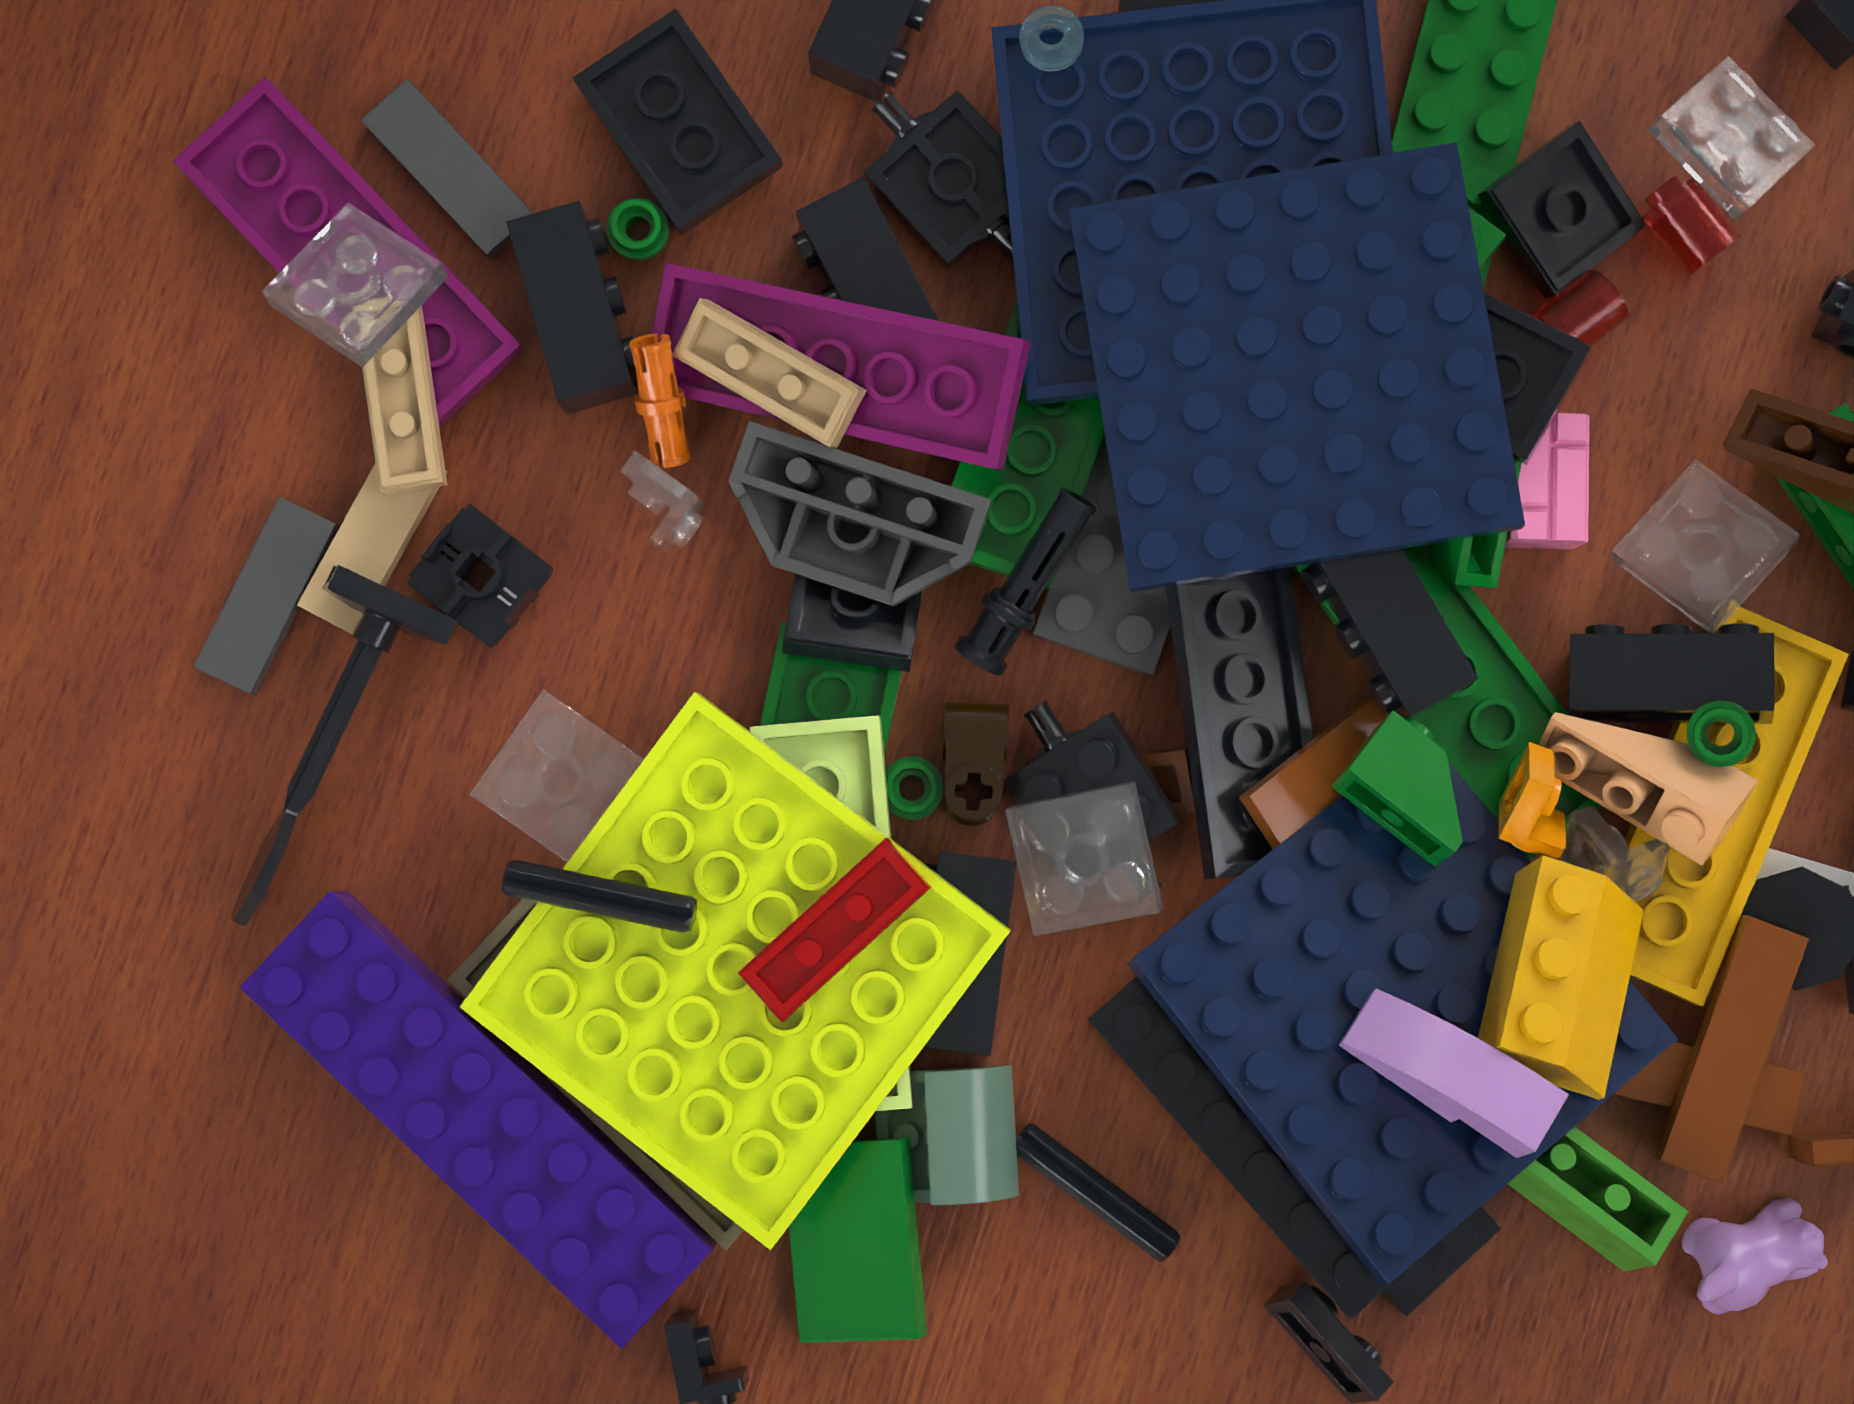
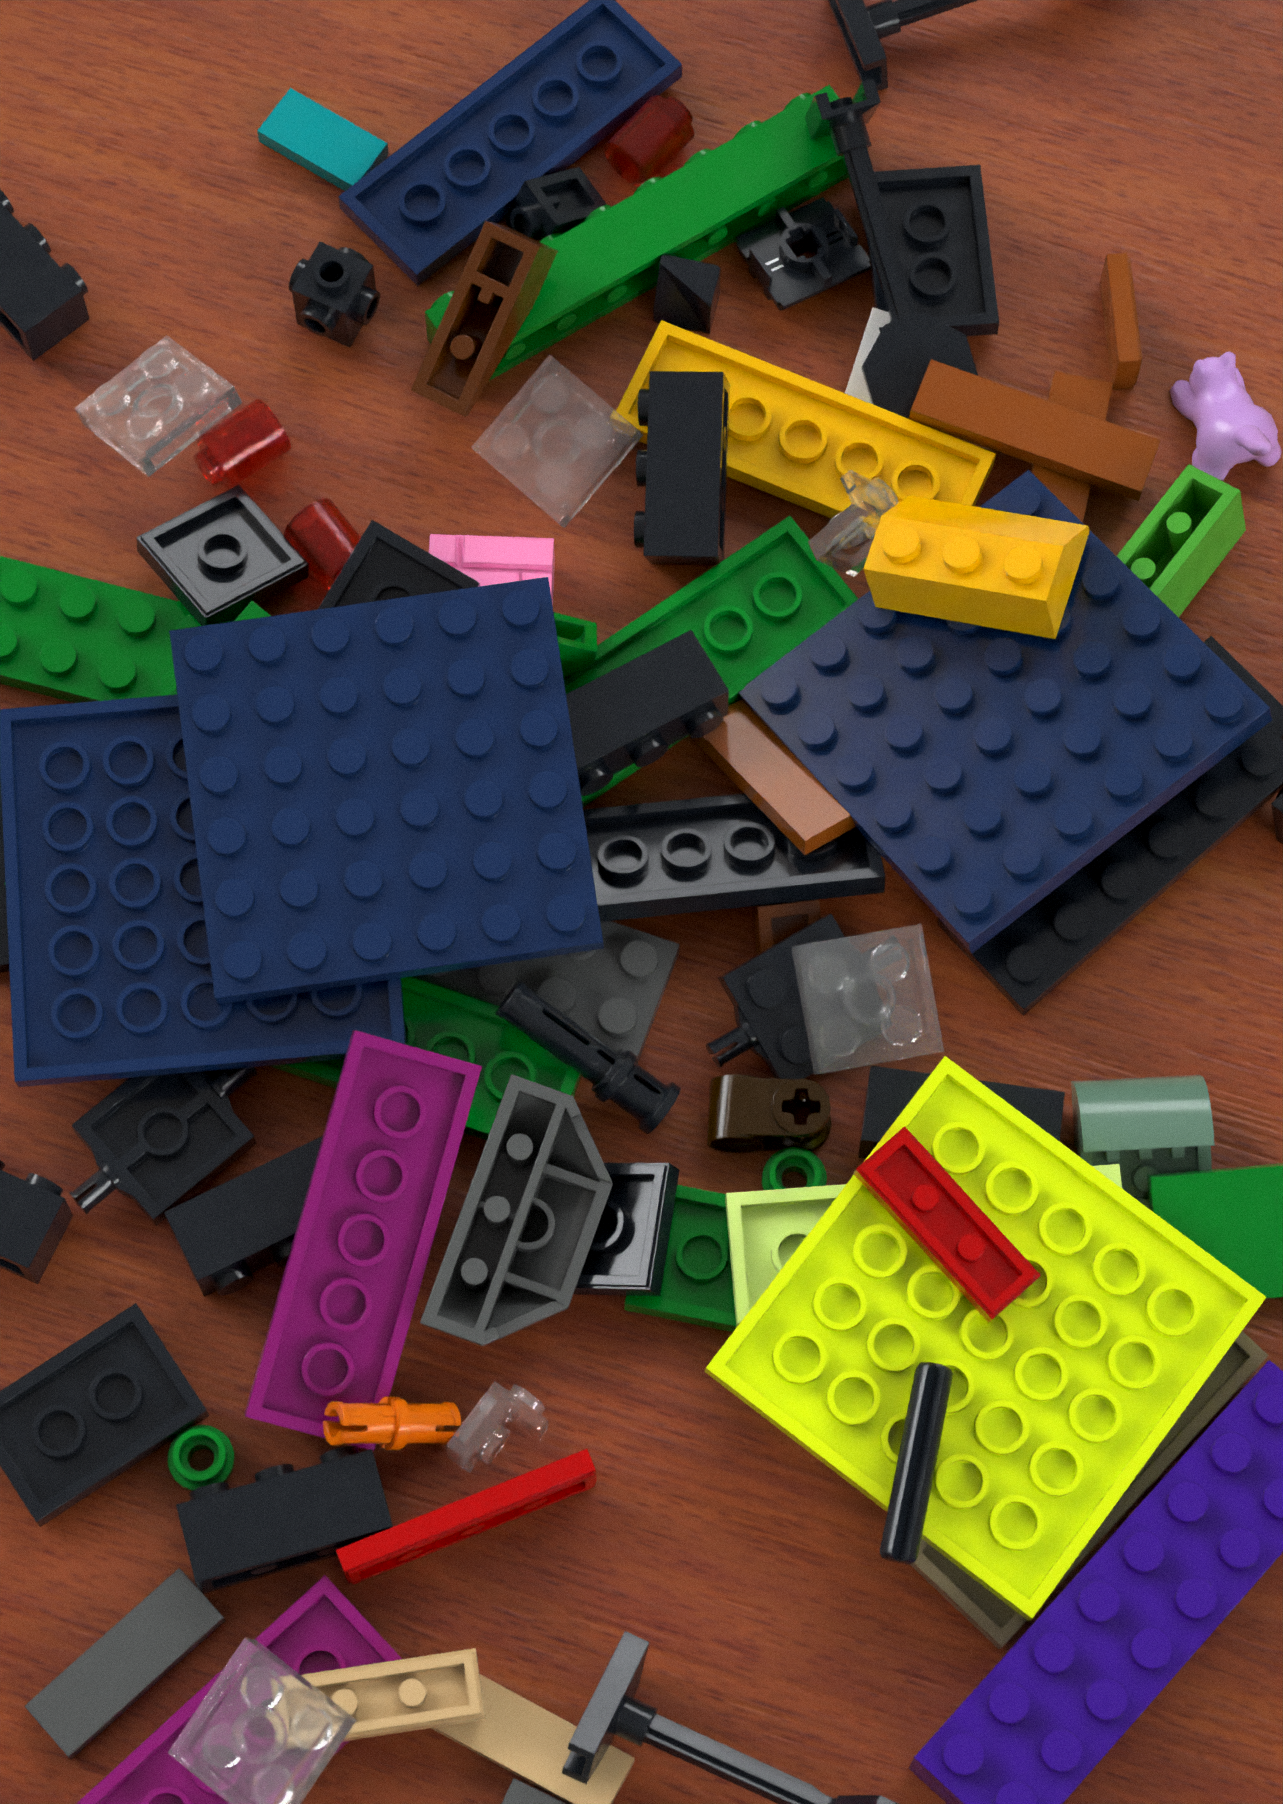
camera: 90 degrees left, 15 degrees down
(504, 597) = (531, 1622): black piece -> none
(556, 775) = (788, 1533): clear plate -> none
(575, 476) = (467, 1517): none -> red tile
(769, 373) = (370, 1302): tan tile -> none
(1054, 56) = (41, 1033): clear light blue plate -> none
(1096, 1192) = (1194, 1004): black axle -> none
(1405, 787) = (795, 697): green slope -> none
(1454, 1072) = (1070, 648): lavender slope -> none
(1528, 805) = (809, 591): light orange bracket -> none
(1649, 782) = (786, 486): light nougat slope -> none
(1726, 754) = (753, 403): green plate -> none

